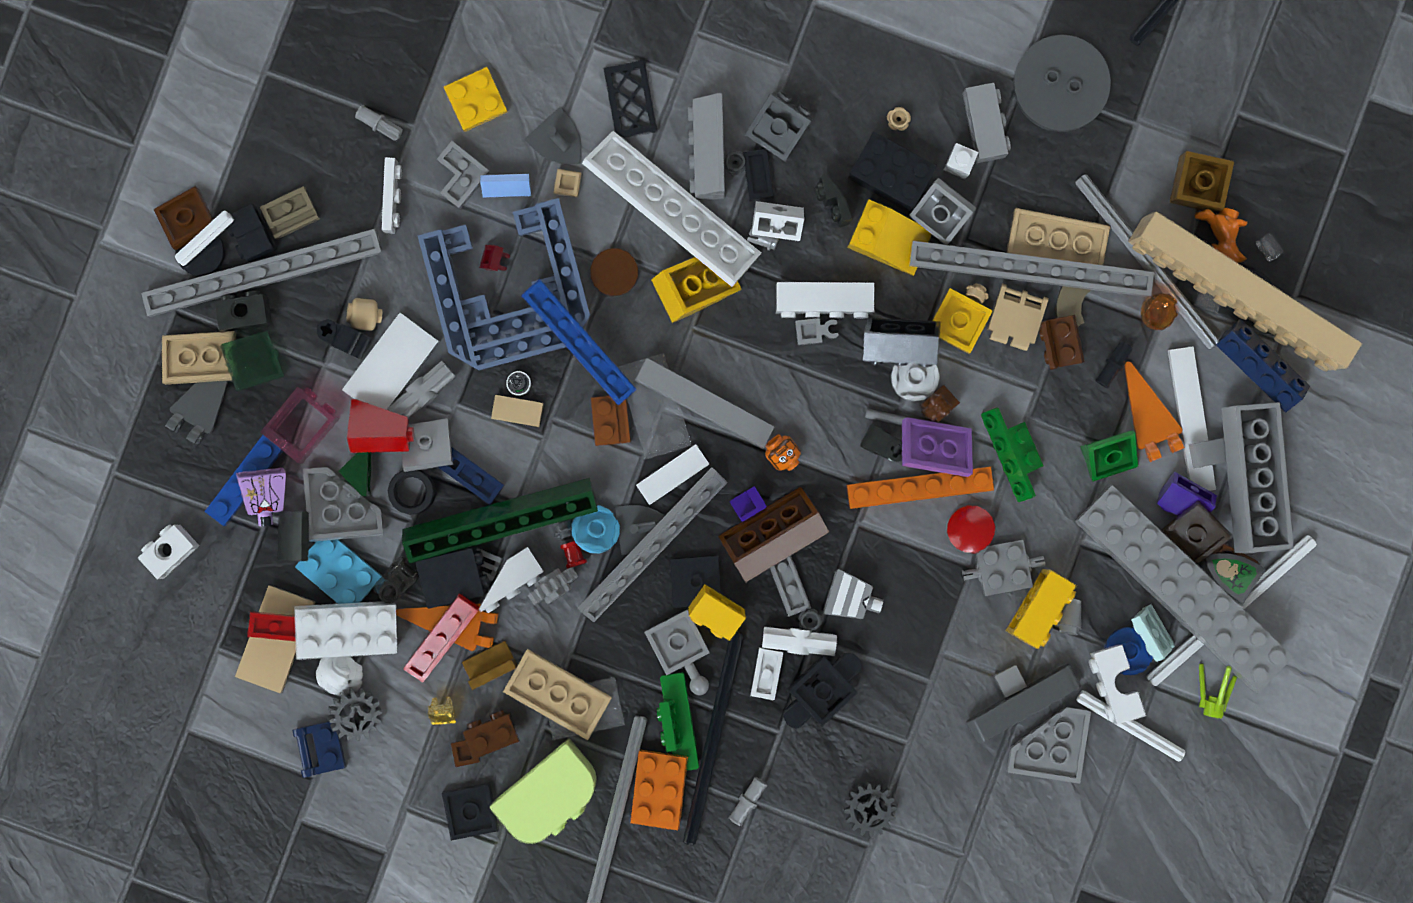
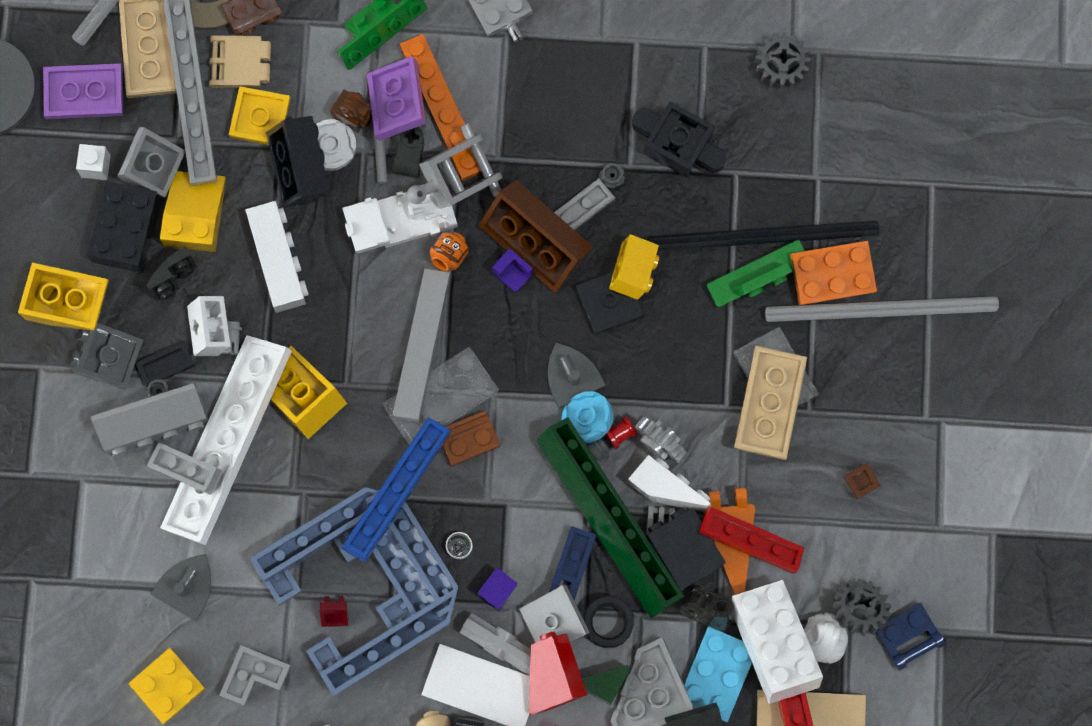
camera: 110 degrees left, 10 degrees down
(441, 713) = (830, 517): clear yellow tile -> none
(468, 404) = (497, 589): none -> dark purple panel
(469, 811) = (920, 458): black tile -> none
(489, 665) = (764, 484): pearl gold panel -> none
(491, 734) = (834, 459): reddish brown bracket -> none
(505, 185) = (251, 622): light blue tile -> none
(517, 410) = (488, 538): tan tile -> none
(547, 795) = (876, 379): yellowish green brick -> none
(567, 183) = (230, 560): tan tile -> none
(612, 91) = (102, 510): black window -> none
(614, 272) = (311, 481): reddish brown tile -> none
(652, 545) = (585, 354): light grey tile -> none
(655, 164) = (184, 468): none -> light grey plate
(672, 474) = (506, 357): white tile -> none
(677, 646) = (680, 298): light grey plate -> none
(748, 801) = (815, 181): light grey pin -> none
(766, 673) = (680, 201): white plate -> none
(799, 641) = (637, 178): white piece -> none
(811, 331) = (314, 259): light grey plate -> none
(828, 418) = (395, 221): none -> white piece
(841, 100) = (62, 297): none -> yellow slope
(842, 458) = (436, 184): none -> light grey piece
(850, 597) = (575, 142): torso -> none
(903, 114) = (63, 232): tan plate -> none
(971, 529) = (469, 44): red dish -> none
(977, 293) = (225, 107): tan plate -> none
(986, 122) = (44, 149): light grey brick -> none
(1030, 170) = (83, 91): none -> medium lavender plate

